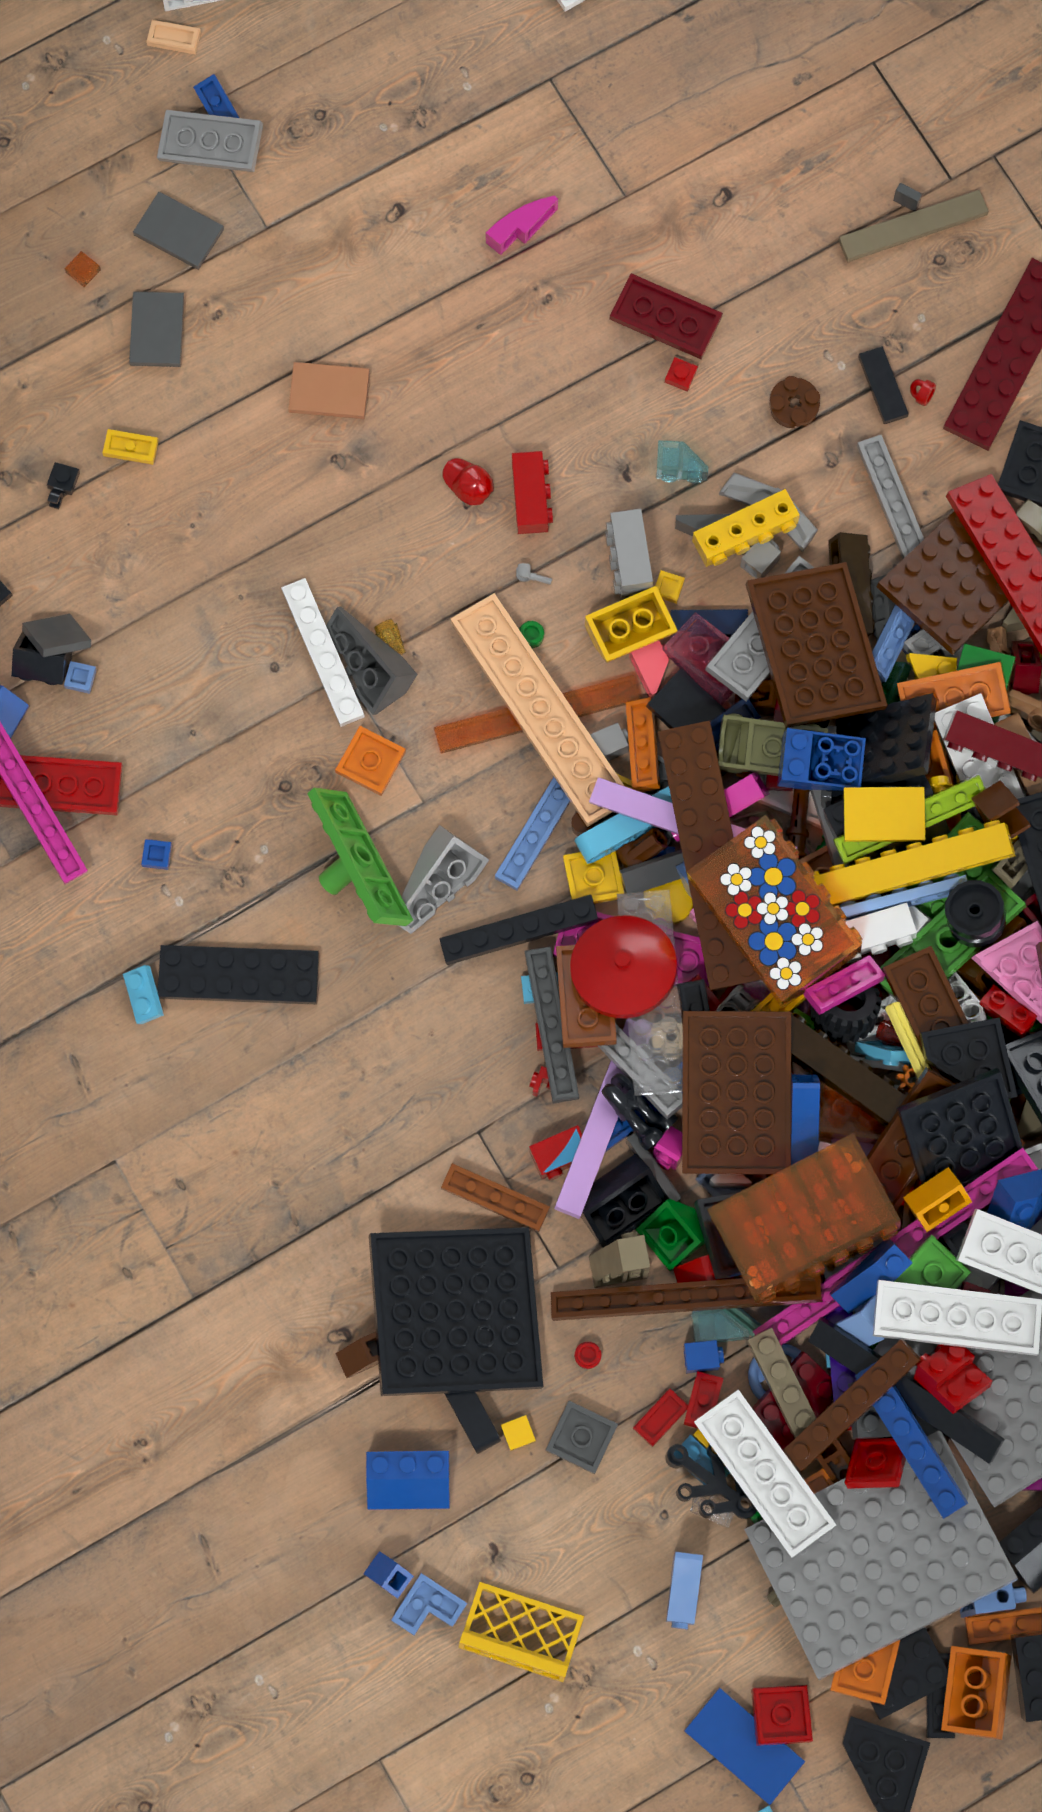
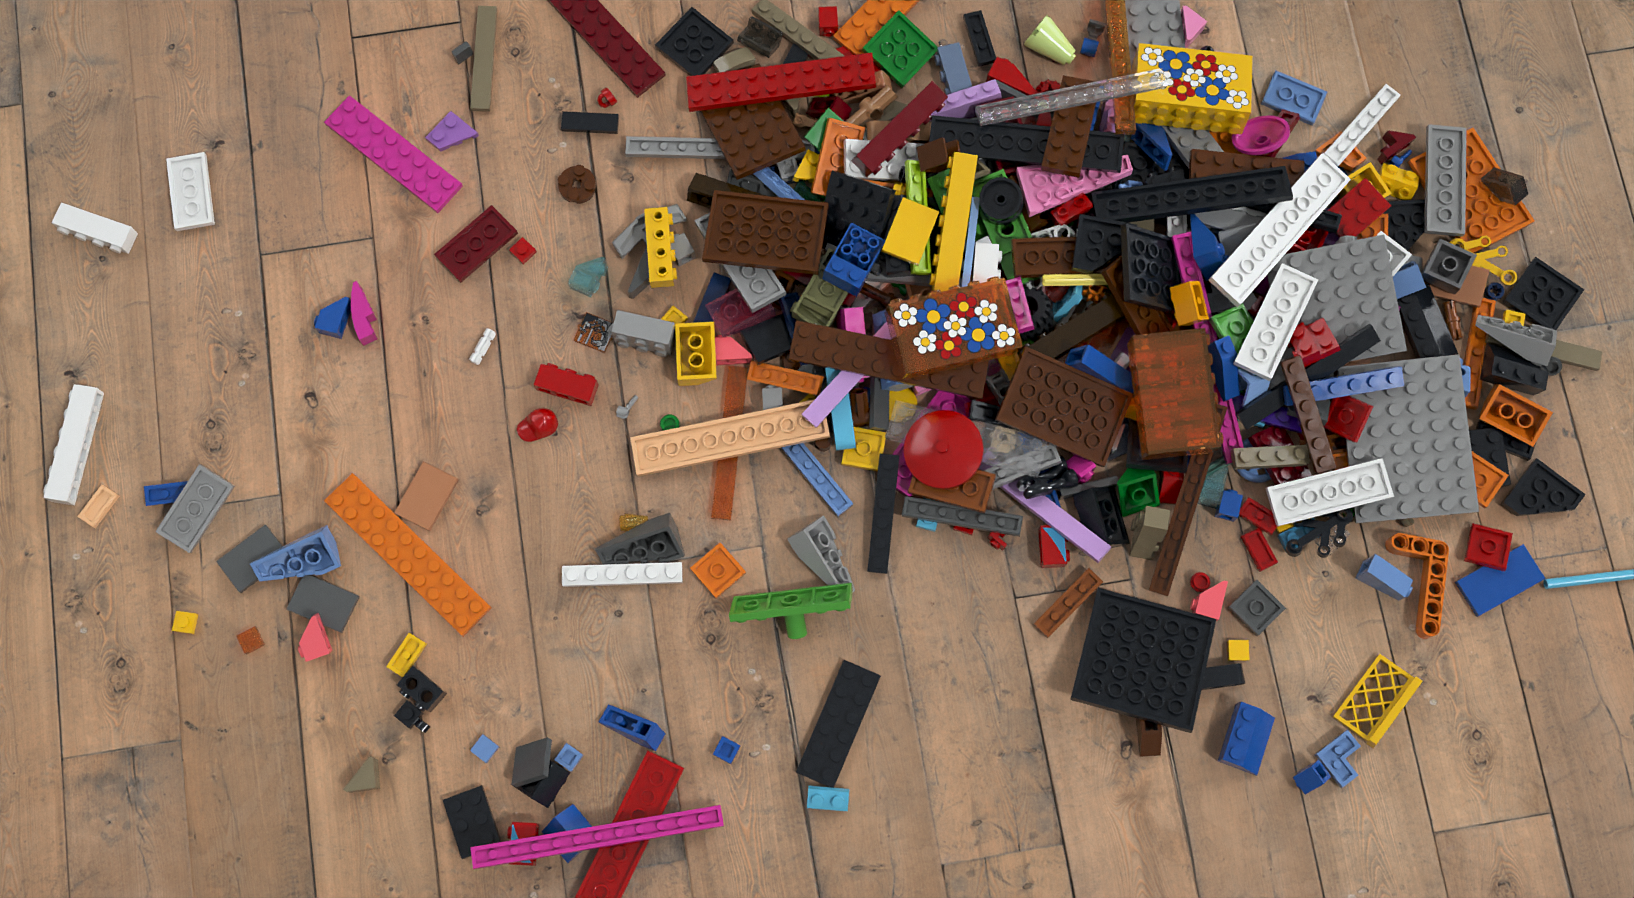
camera: 70 degrees left, 0 degrees up
(55, 579) = (484, 748): none -> medium blue tile
(75, 189) = (185, 622): none -> yellow plate
(101, 480) = (423, 686): none -> black brick
(108, 337) = (314, 640): none -> coral slope
(142, 735) = (633, 727): none -> blue slope
(204, 287) = (308, 555): none -> medium blue wedge
(250, 399) = (408, 554): none -> orange plate
(502, 194) = (334, 318): none -> blue slope
(539, 377) = (482, 346): none -> white axle
(565, 1374) = (1210, 601): none -> coral slope
(610, 497) = (594, 332): none -> piece
(706, 1649) = (1428, 577): none -> orange beam
(741, 174) = (393, 154): none -> dark pink plate
(798, 227) = (450, 132): none -> medium lavender wing

